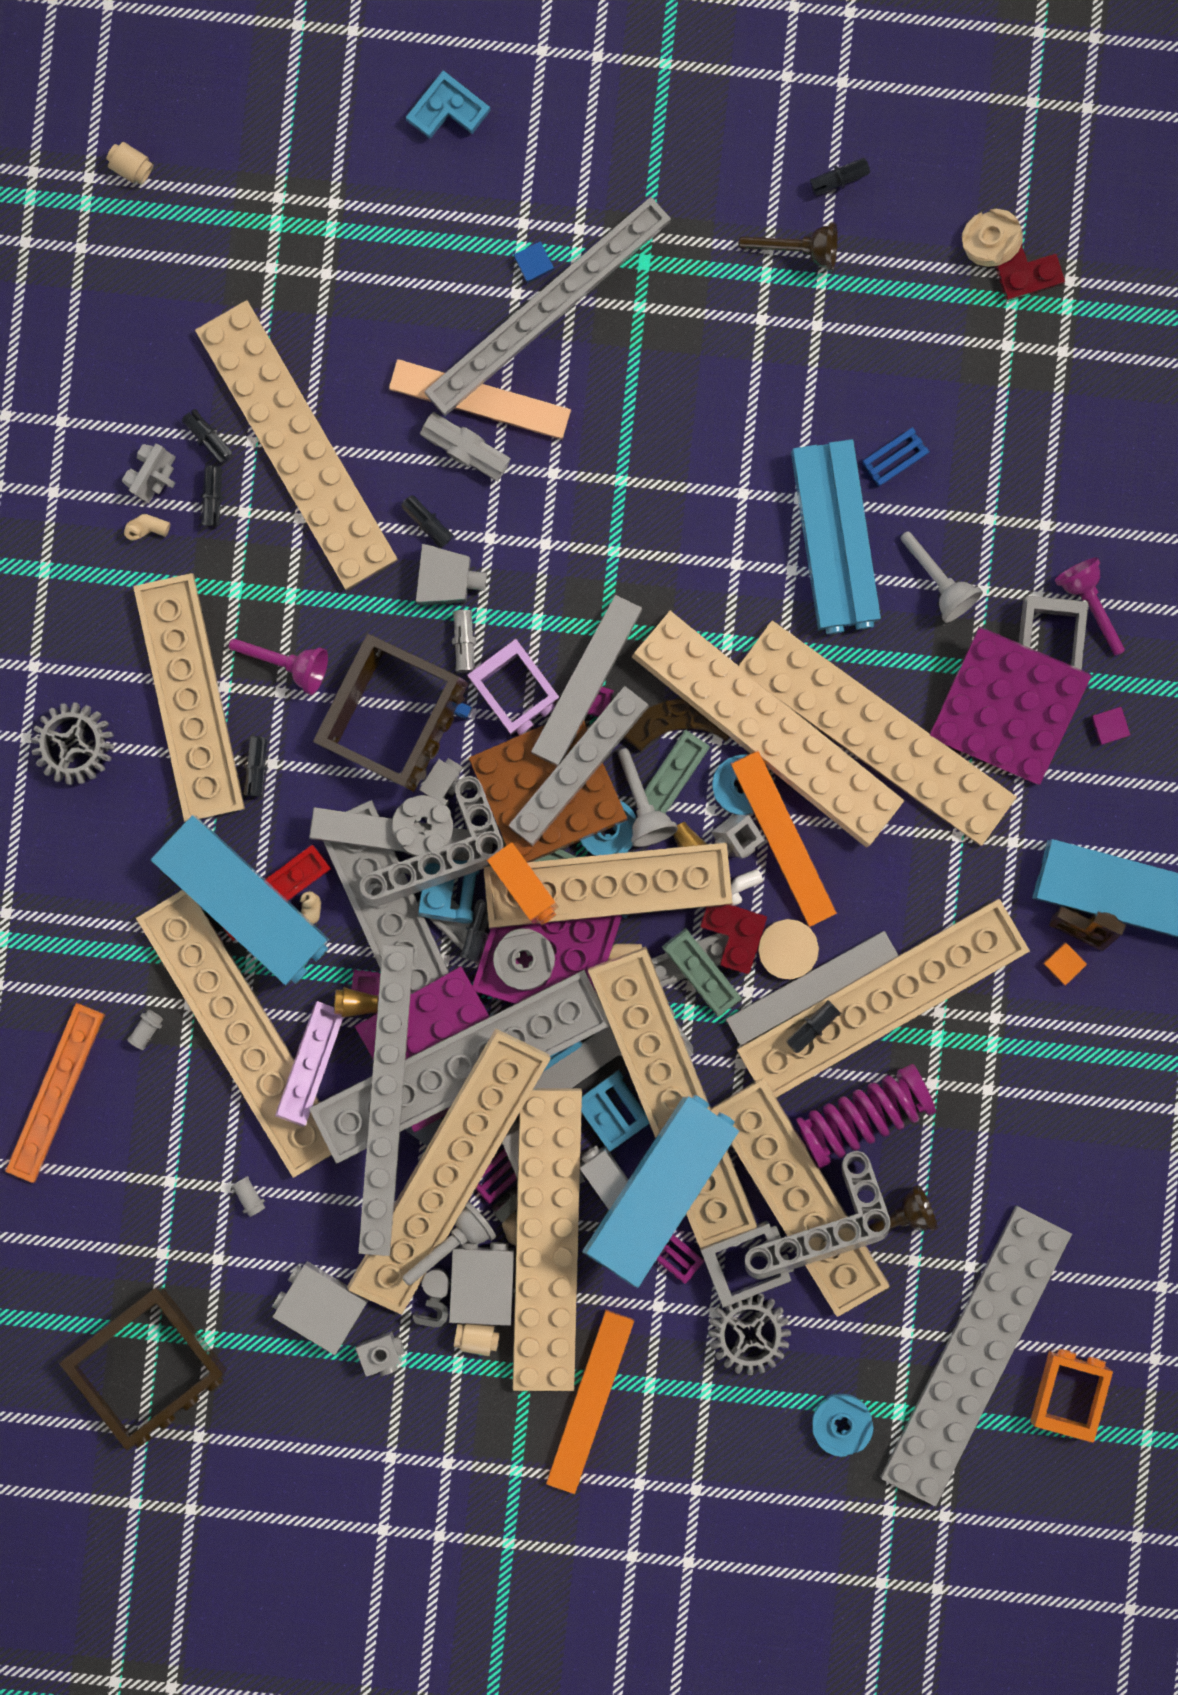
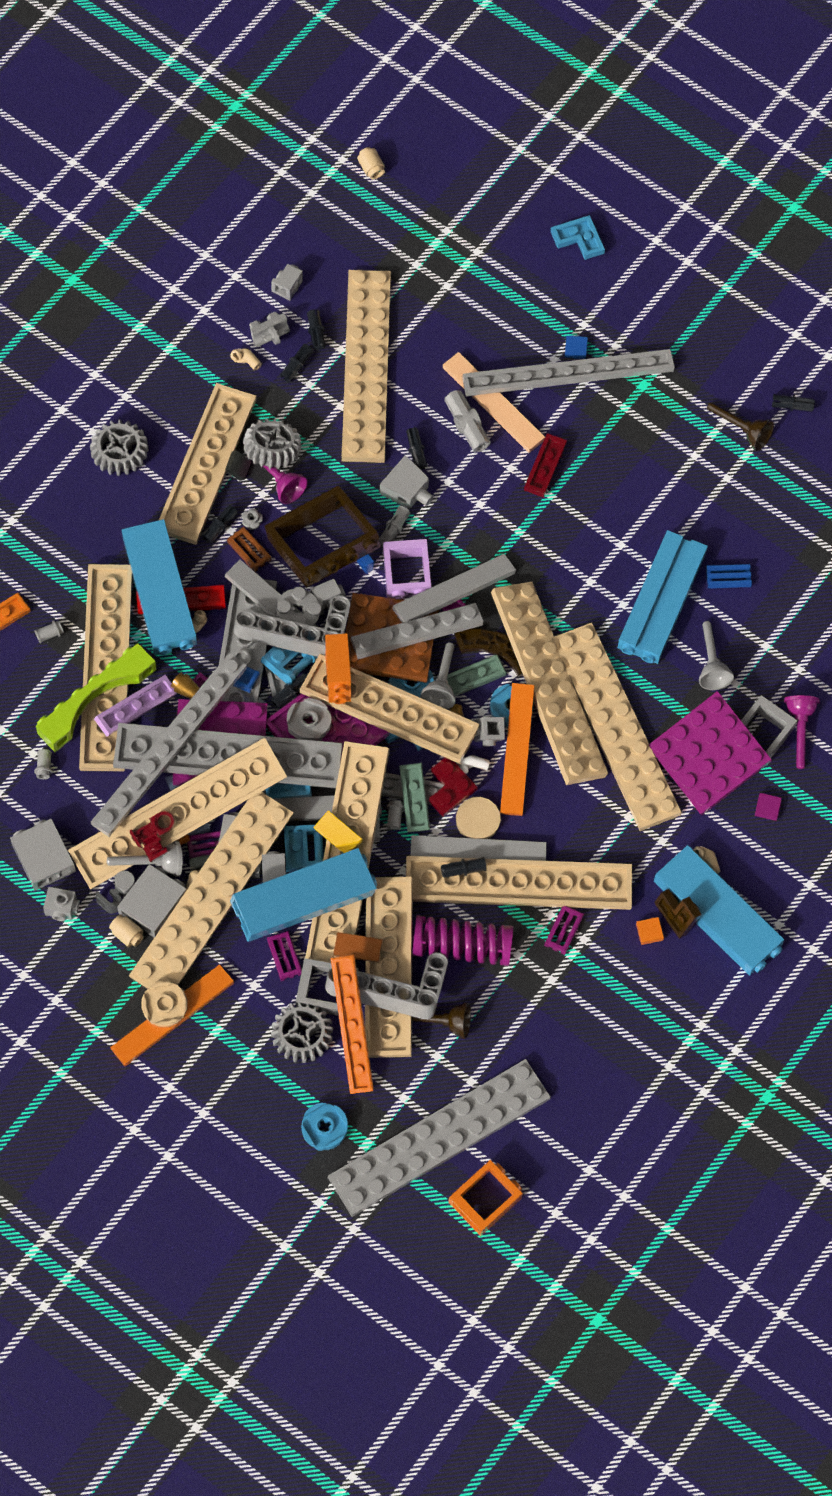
camera: 30 degrees right, 20 degrees down
(131, 392) = (287, 281): none -> light grey brick
(229, 678) = (238, 465): none -> pearl dark grey tile
(240, 1145) = (130, 668): none -> lime arch
(277, 627) = (272, 443): none -> light grey gear
(296, 739) = (251, 524): none -> light grey plate
(334, 783) = (259, 562): none -> dark orange tile
(420, 944) = (247, 680): none -> blue tile
(436, 1222) = (148, 836): none -> dark red piece
(576, 1400) = (164, 1004): none -> tan tile
(593, 447) = (545, 465): none -> dark red plate
(649, 1085) = (337, 833): none -> yellow tile
(690, 1005) = (394, 814): none -> light grey pin
(754, 1201) = (362, 947): none -> dark orange tile
(806, 1301) = (352, 1023): none -> orange tile
(966, 1022) = (556, 946): none -> magenta tile
(1078, 832) = (708, 857): none -> tan arm

